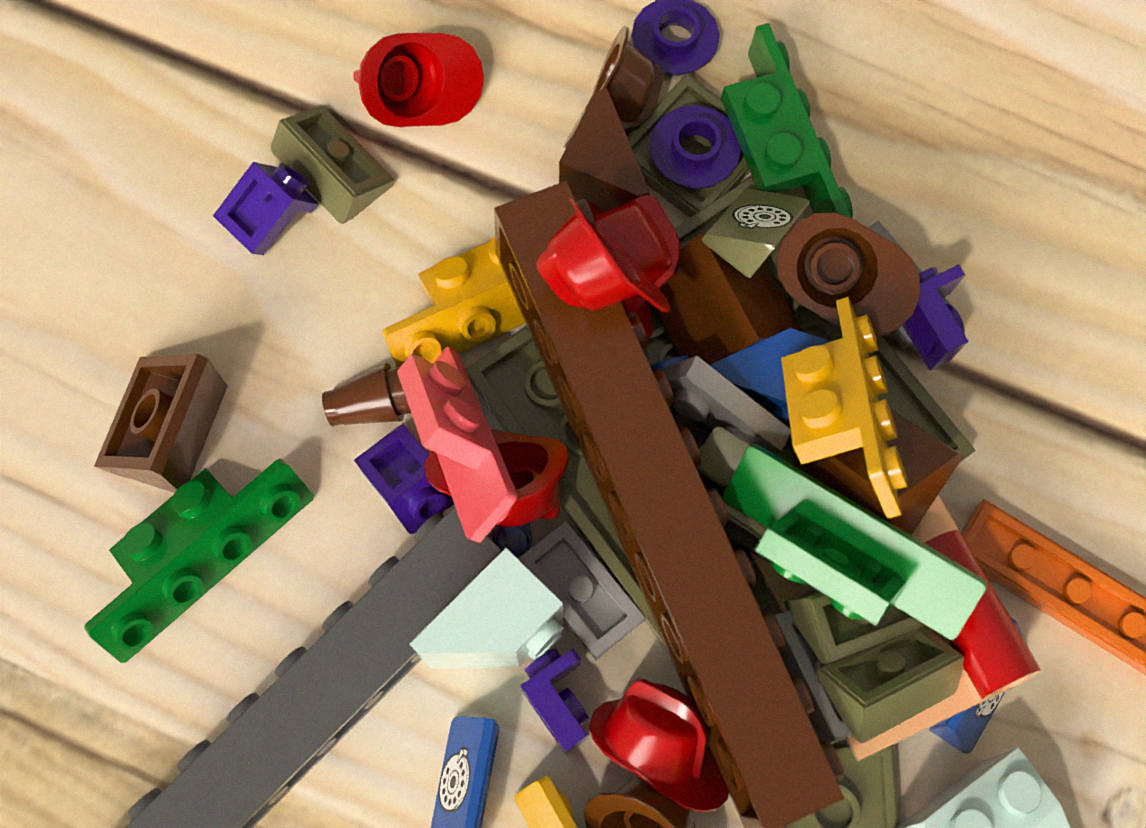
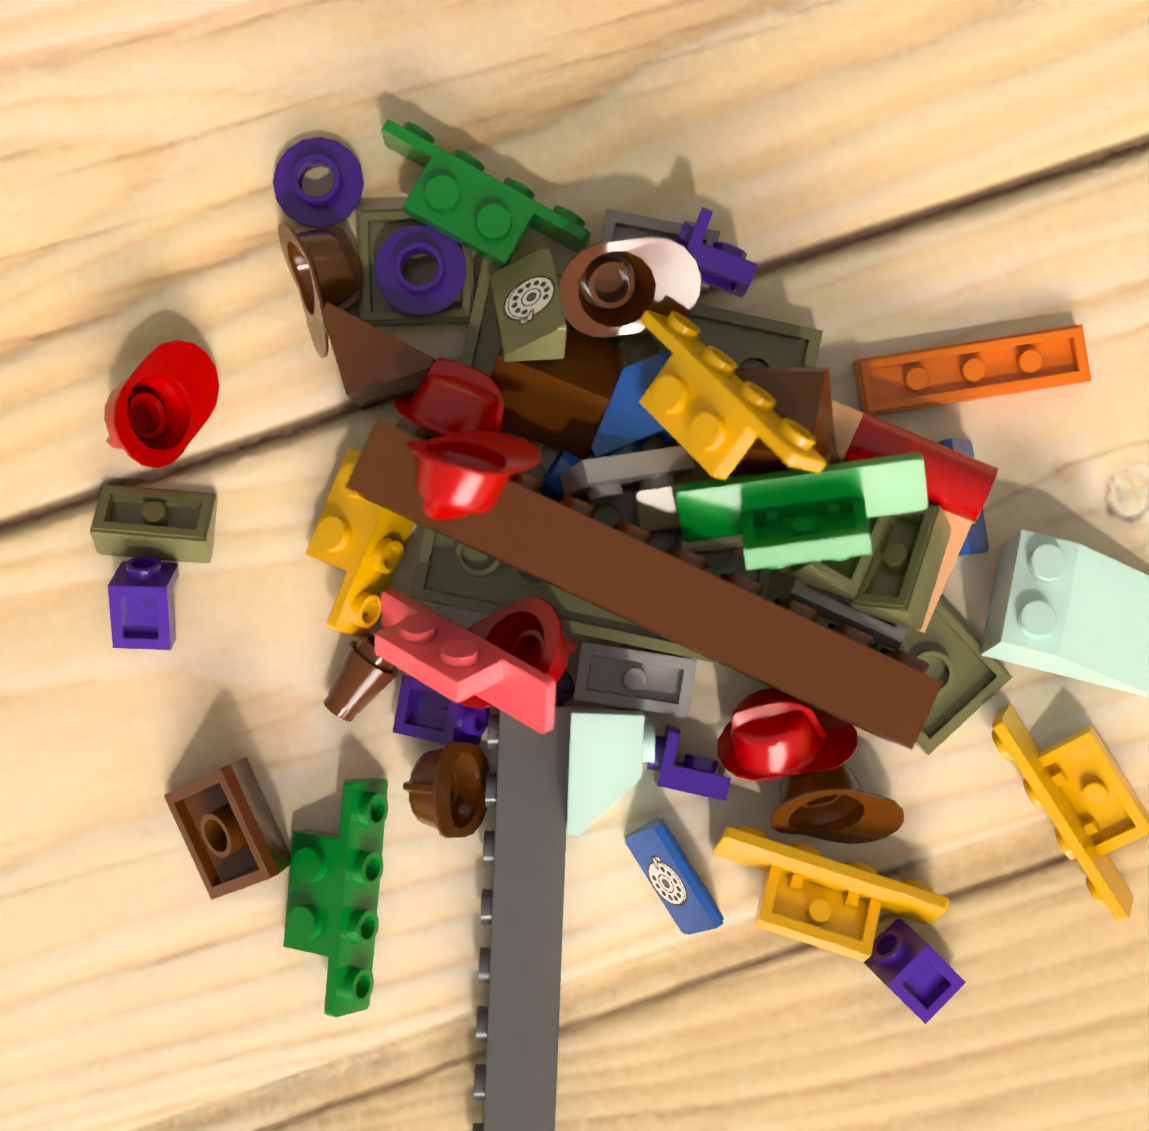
camera: 45 degrees left, 15 degrees up
(354, 537) = (449, 789): none -> reddish brown piece

